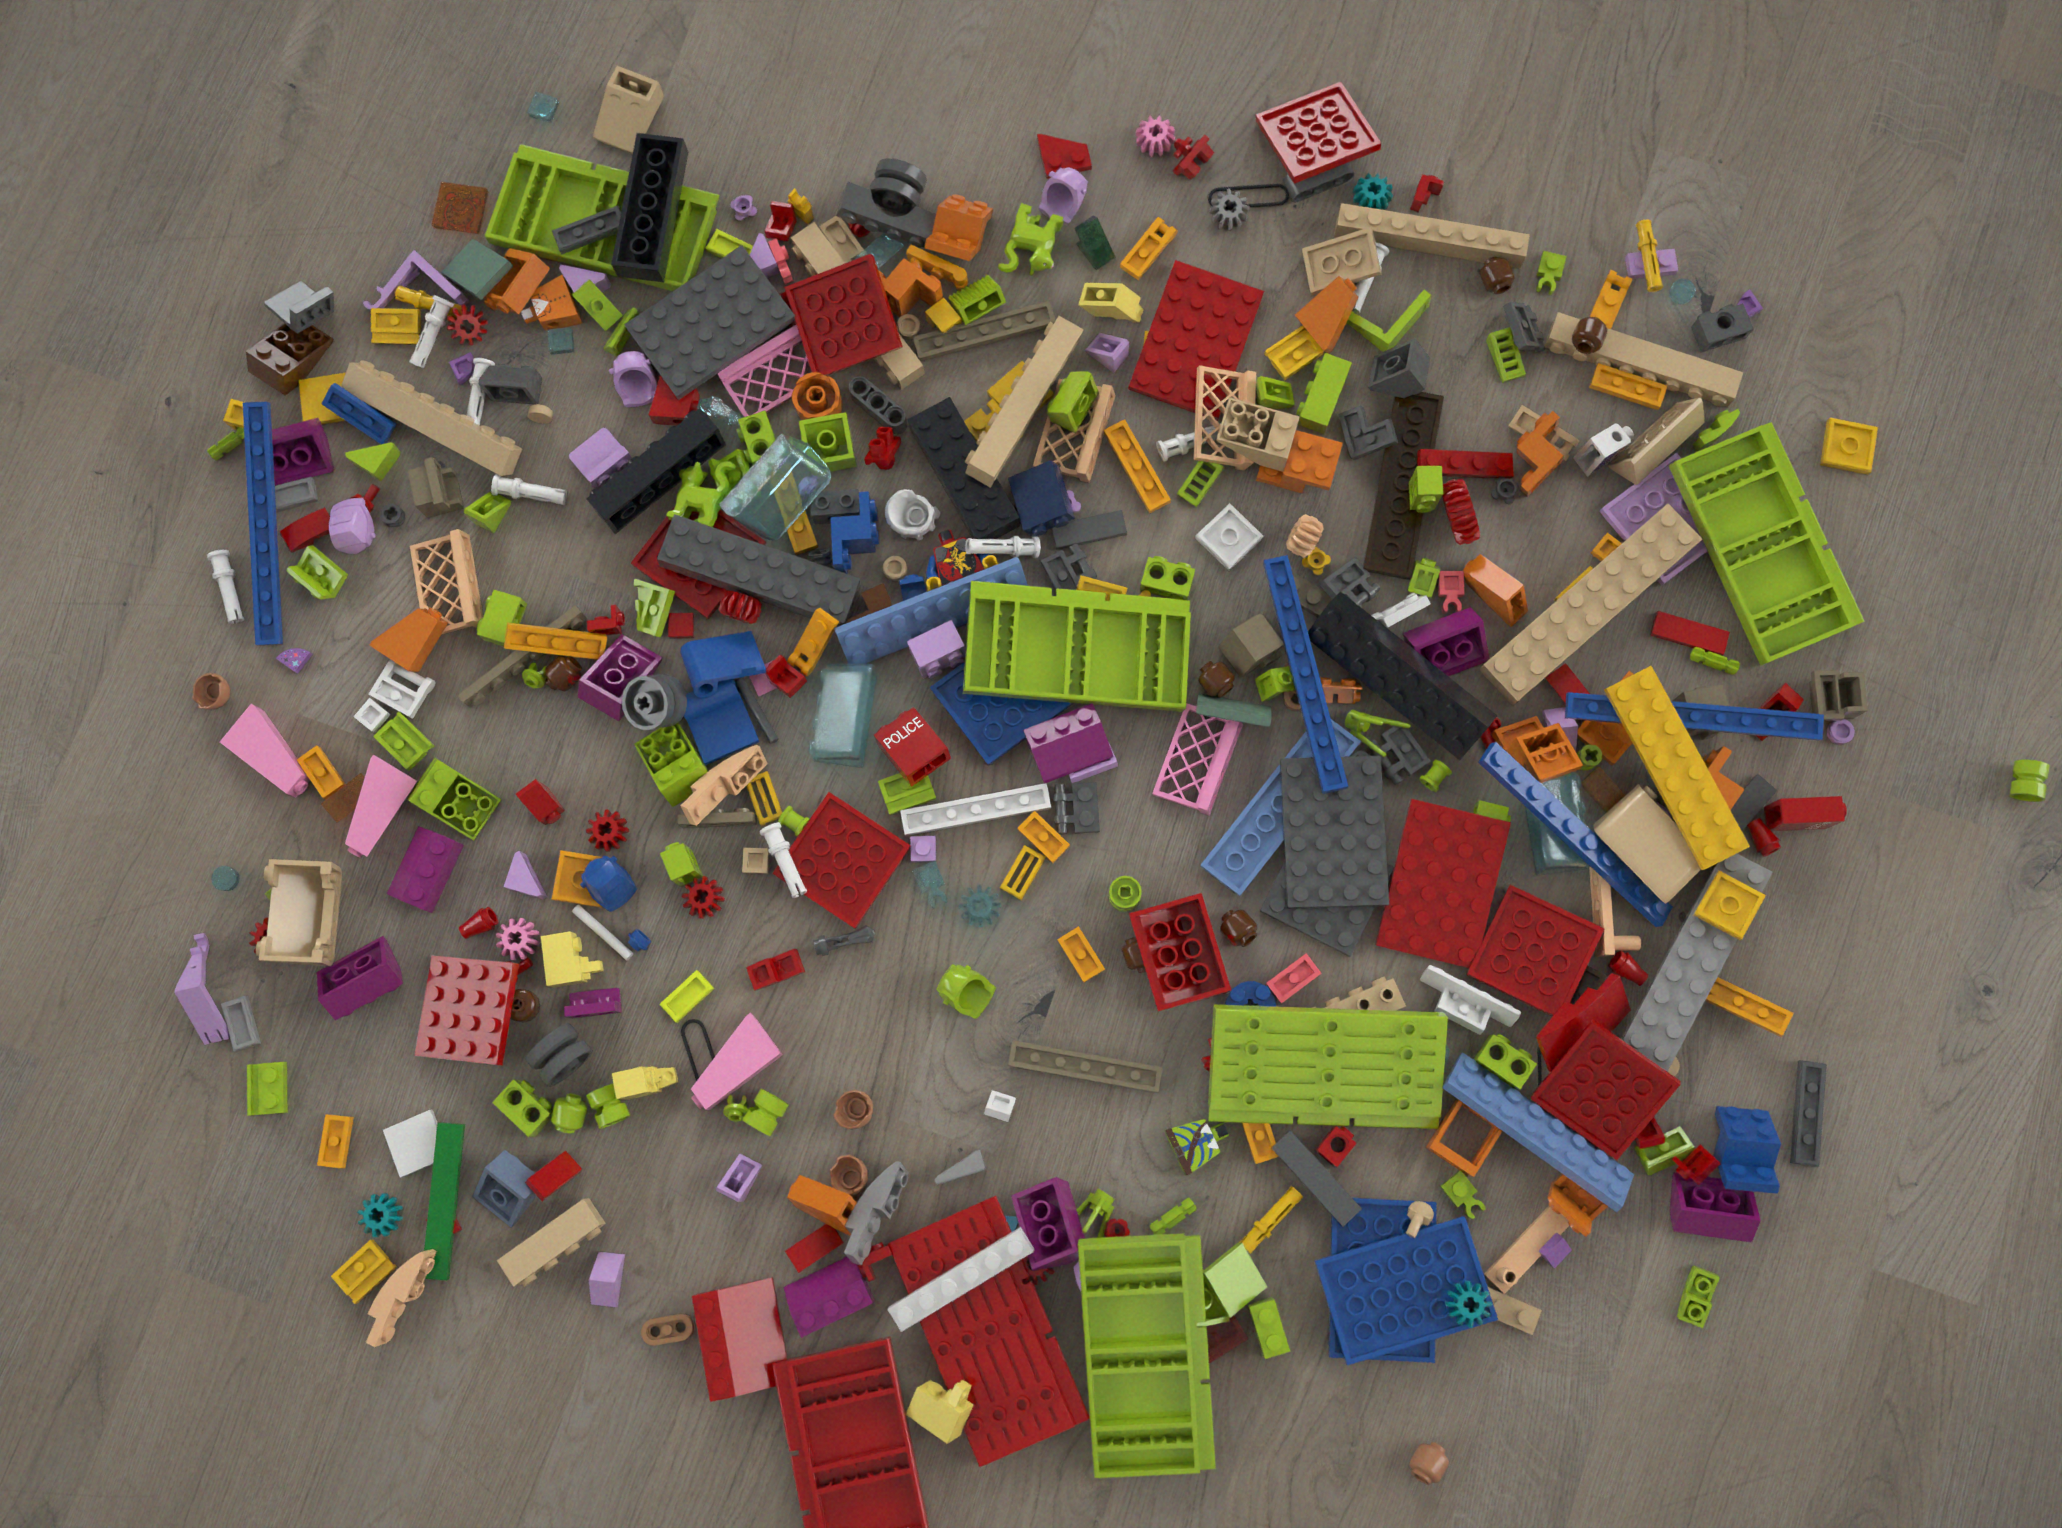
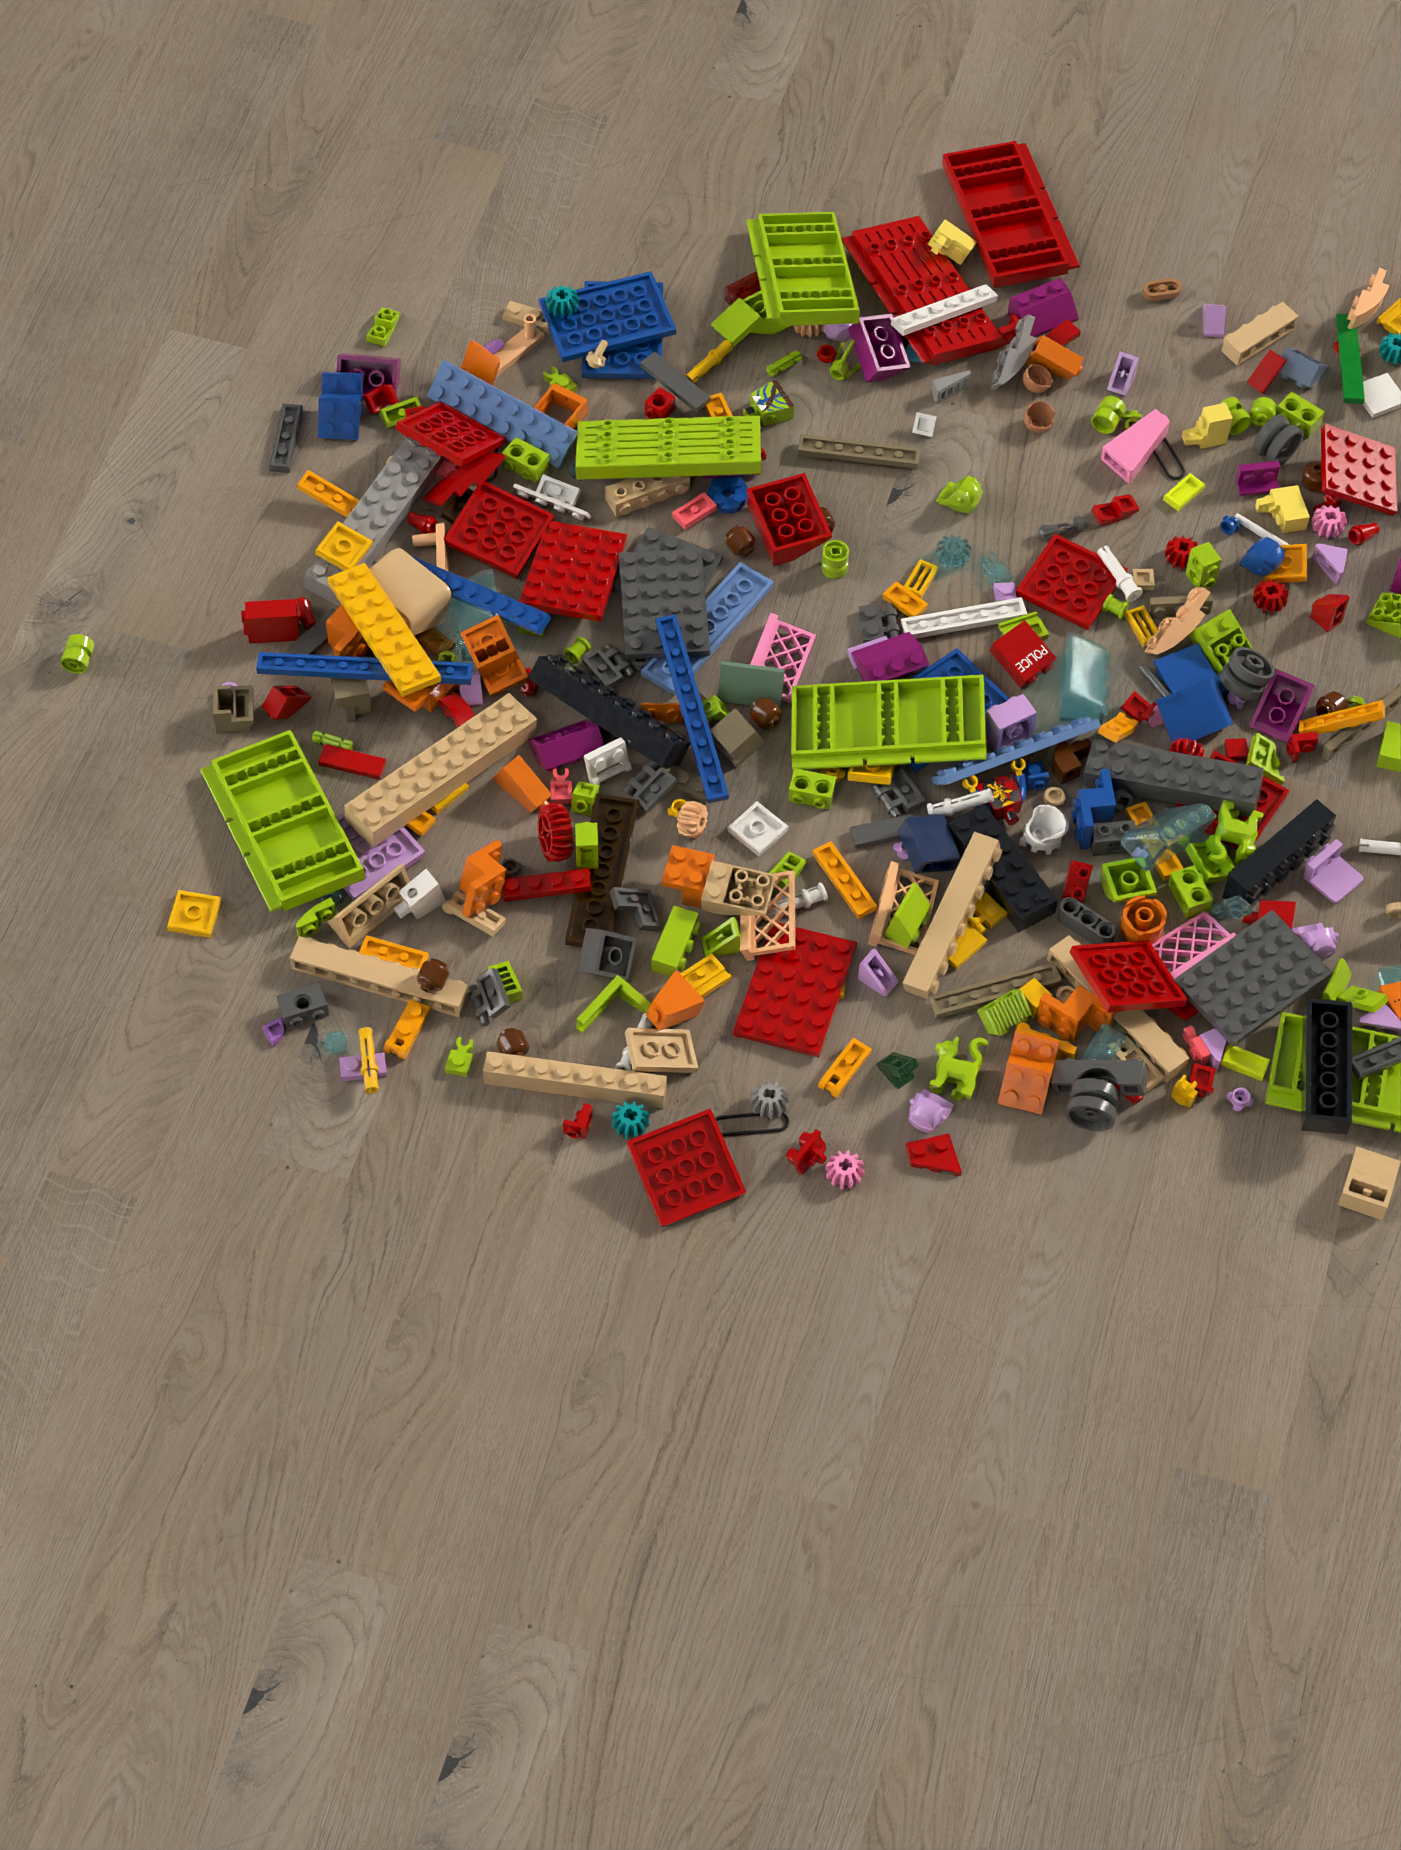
camera: 170 degrees right, 20 degrees down
(739, 1338) = (1107, 285): slope -> none
(1081, 954) = (867, 523): light orange plate -> none
(1111, 301) = (878, 1005): light yellow hinge -> none
(1268, 1328) = (709, 297): lime brick -> none
(1361, 721) = (642, 685): lime plant -> none
(1429, 1463) = (589, 227): nougat head -> none

